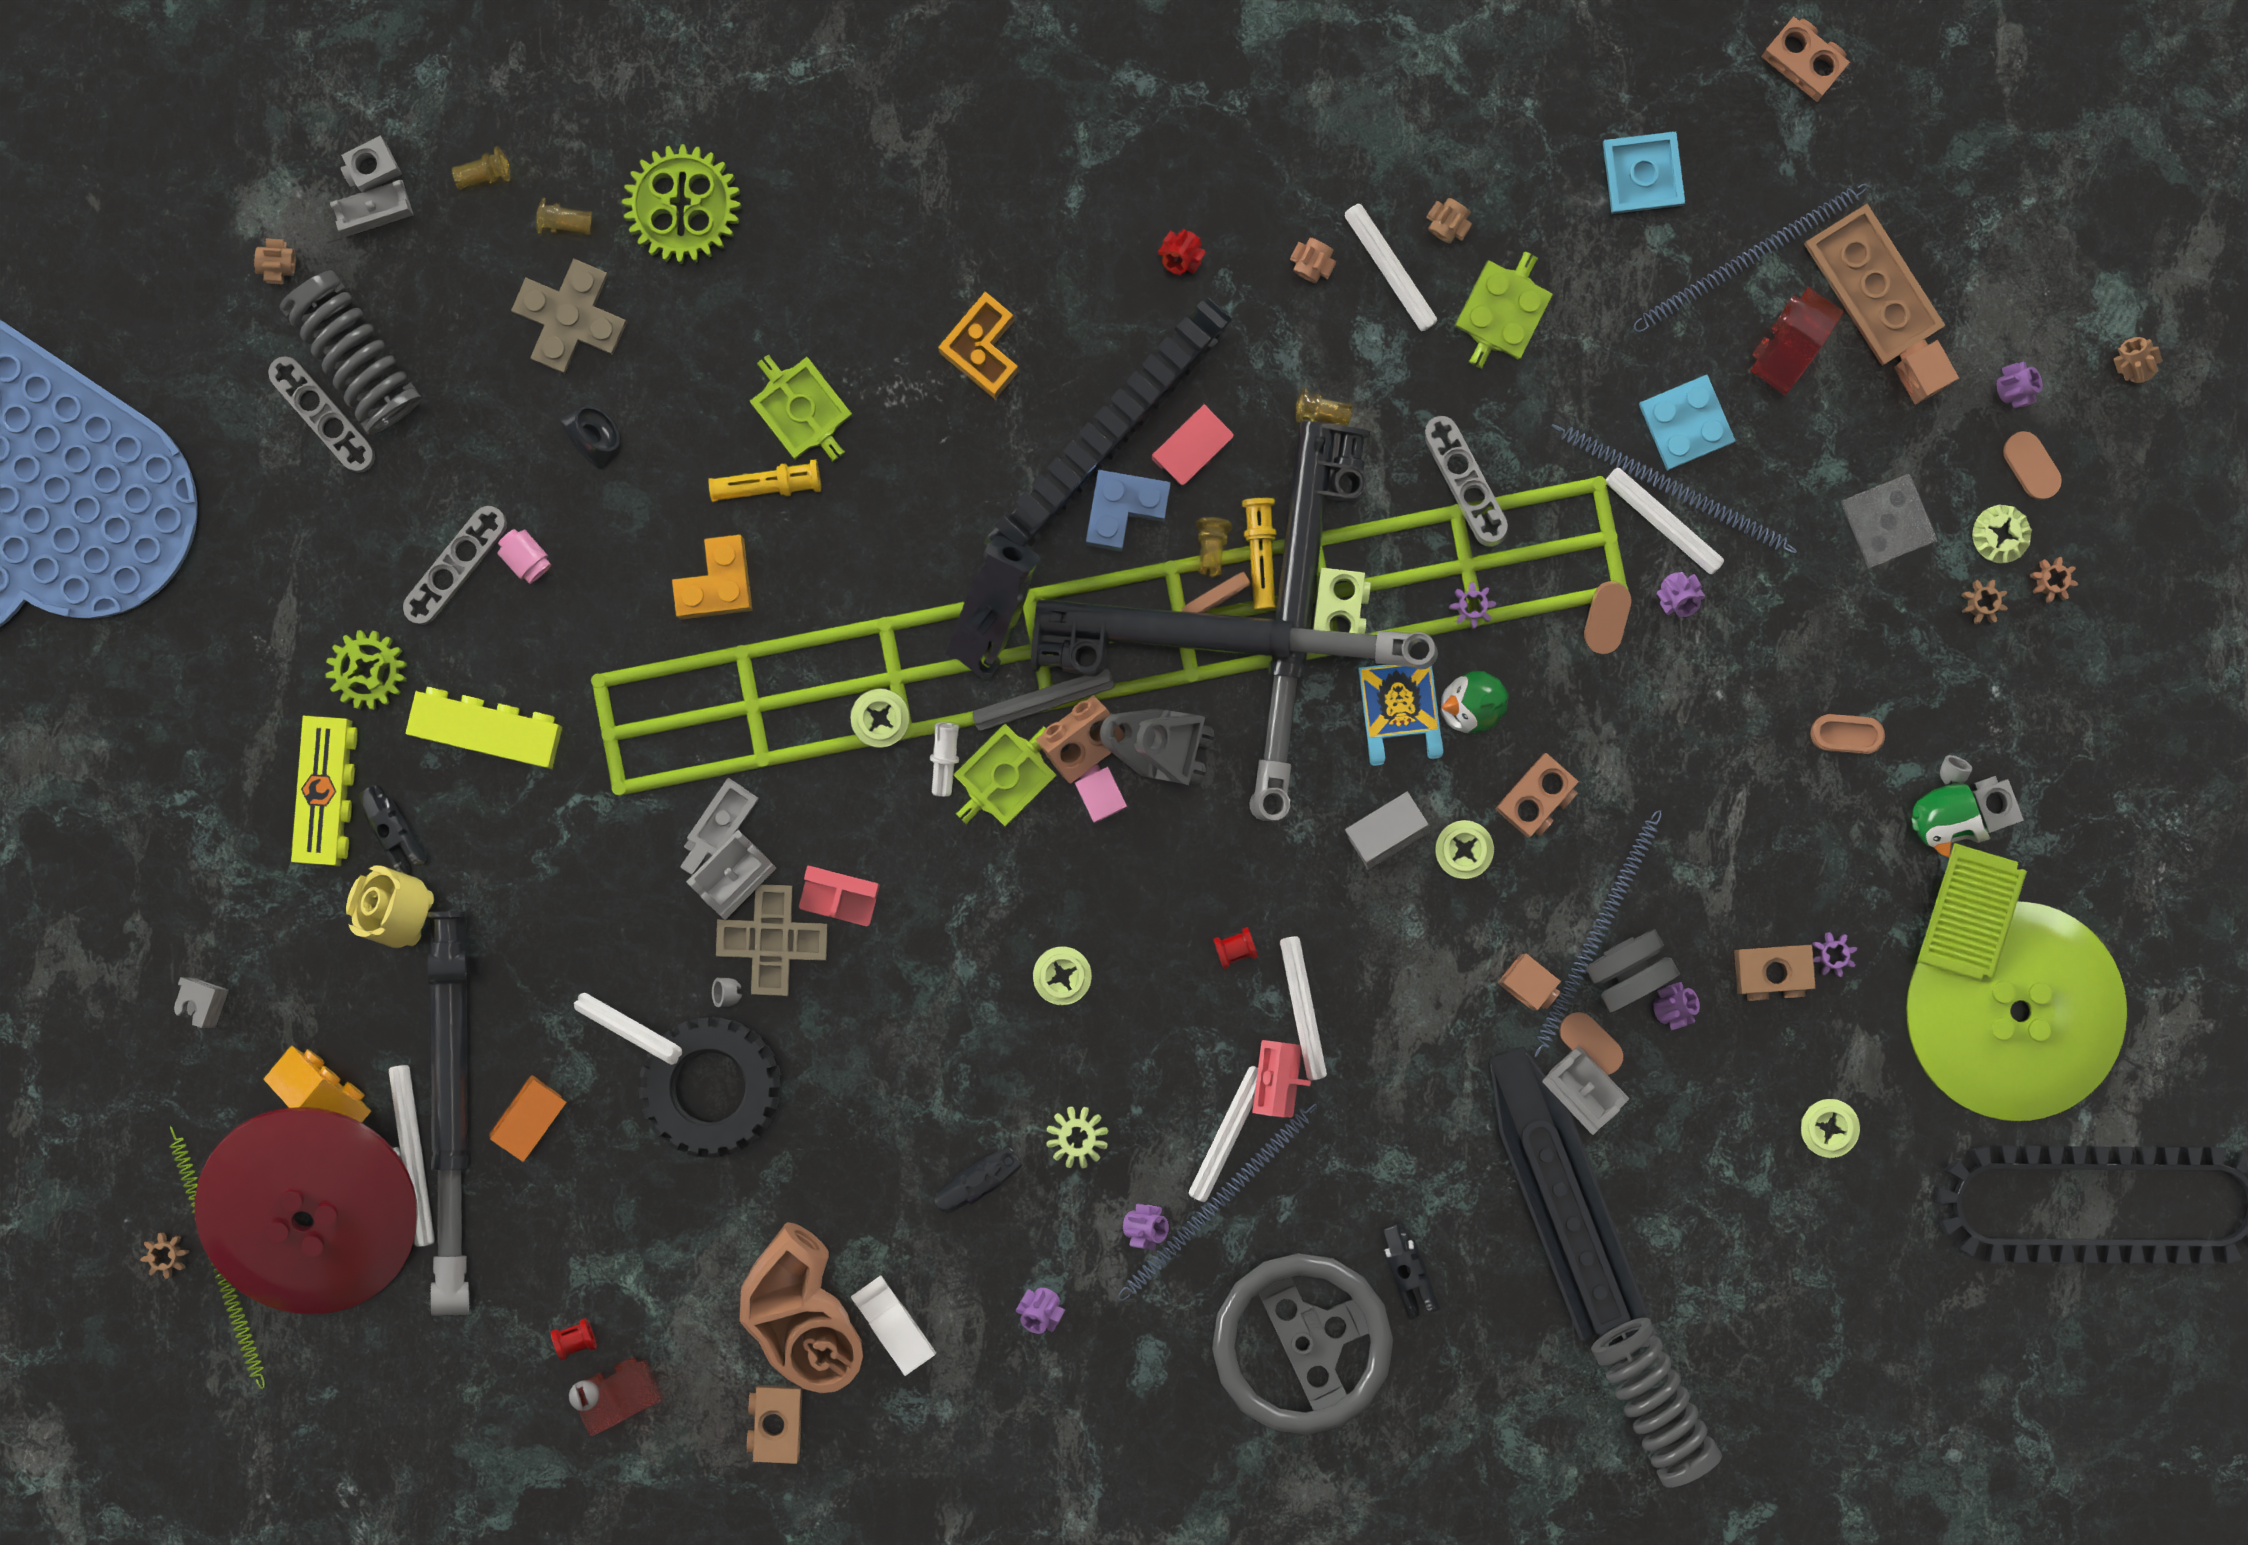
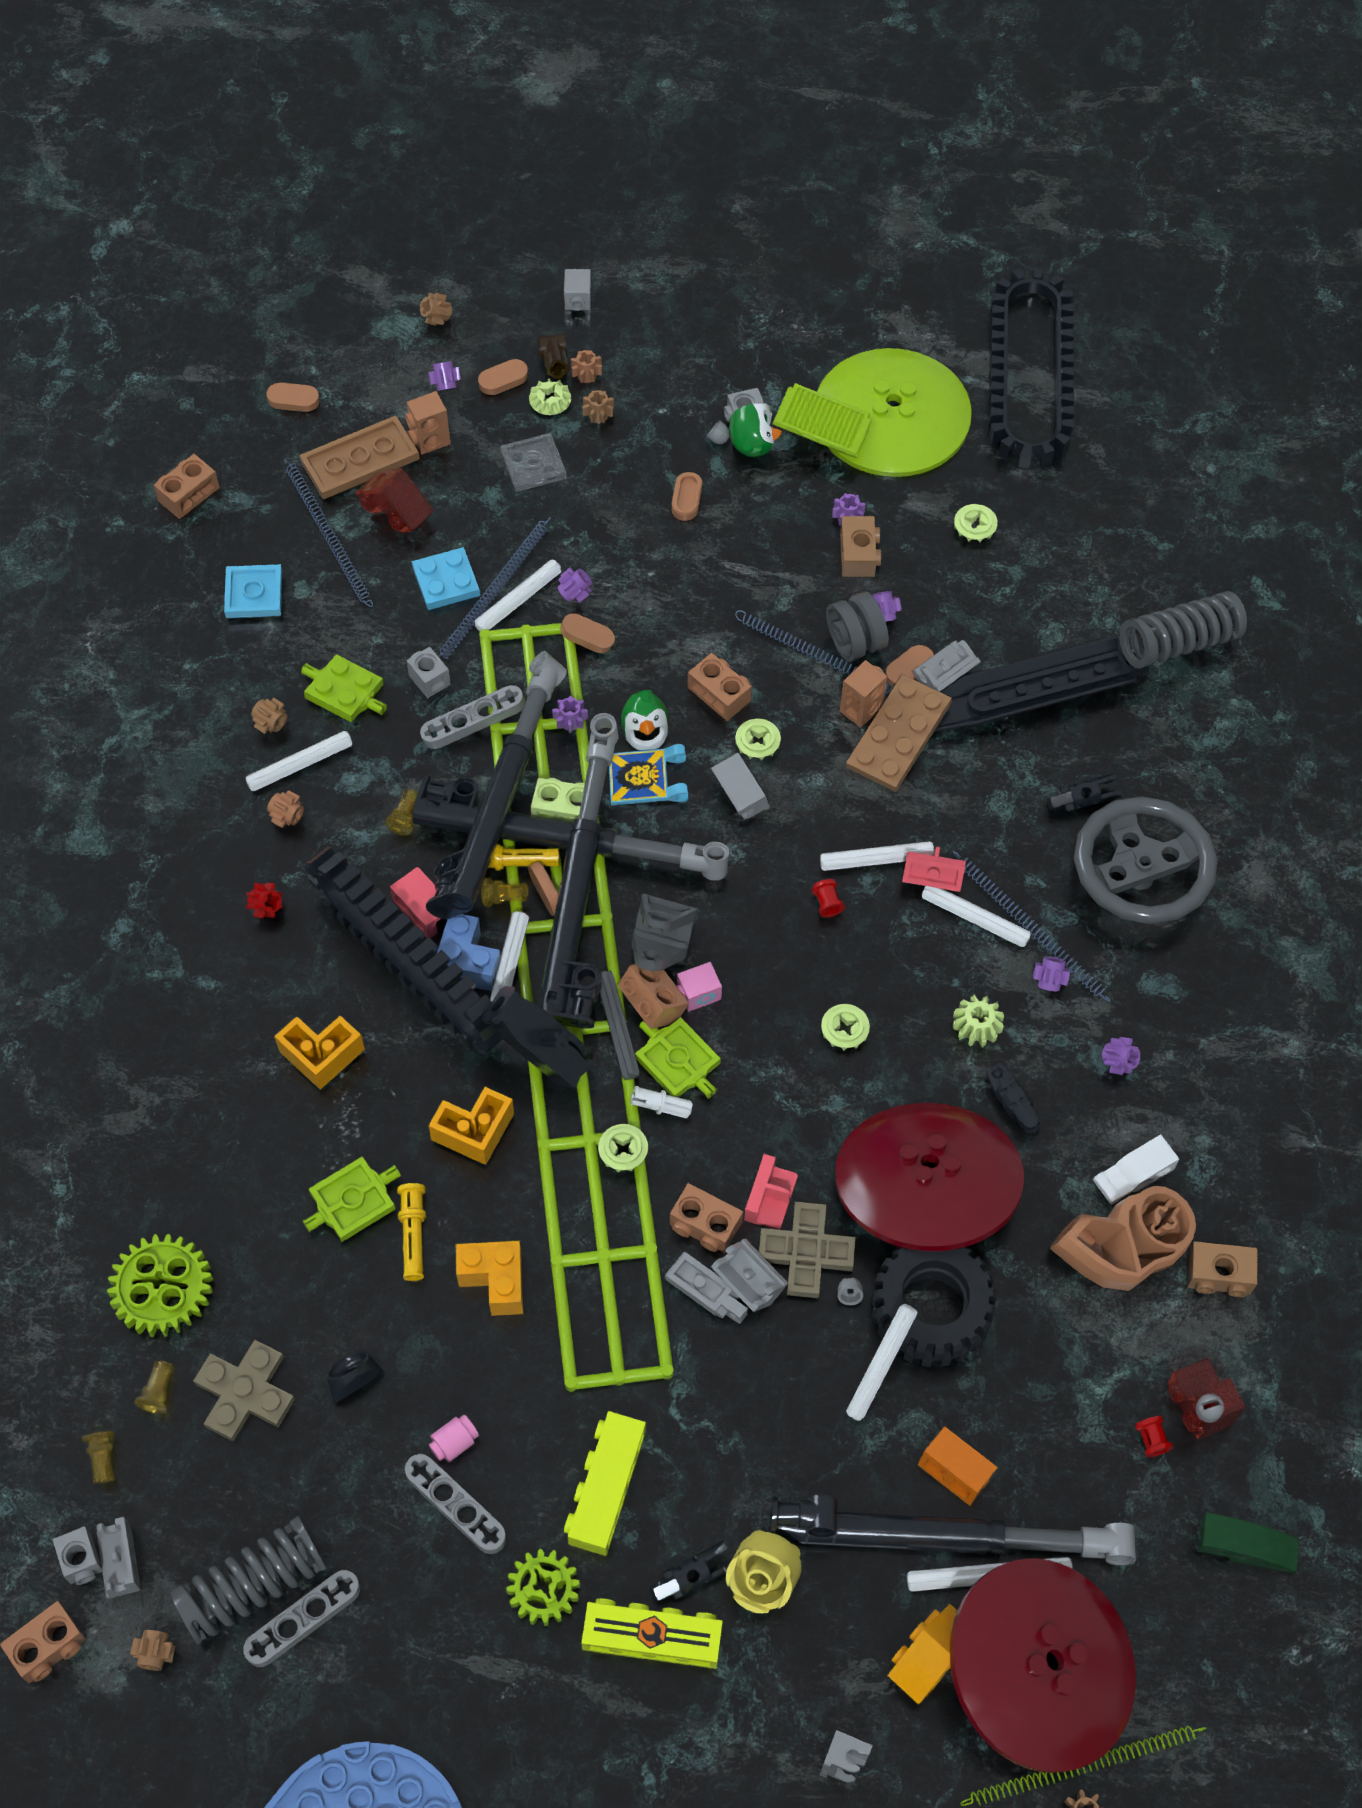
camera: 85 degrees left, 25 degrees down
(282, 140) = (39, 1635): none -> nougat brick
(458, 1441) = (1248, 1543): none -> dark green slope
(809, 824) = (711, 1212): none -> nougat brick
(813, 1090) = (925, 1207): none -> dark red dish
(885, 539) = (476, 1131): none -> light orange brick
(1109, 559) = (510, 952): none -> white axle
(1210, 494) = (463, 872): none -> black piece
(1483, 1031) = (899, 733): none -> medium nougat plate
(1521, 427) = (428, 681): none -> light grey brick
(1974, 180) = (293, 397): none -> nougat tile
(2076, 532) = (554, 353): none -> dark brown piece
(2190, 556) = (577, 289): none -> light grey brick

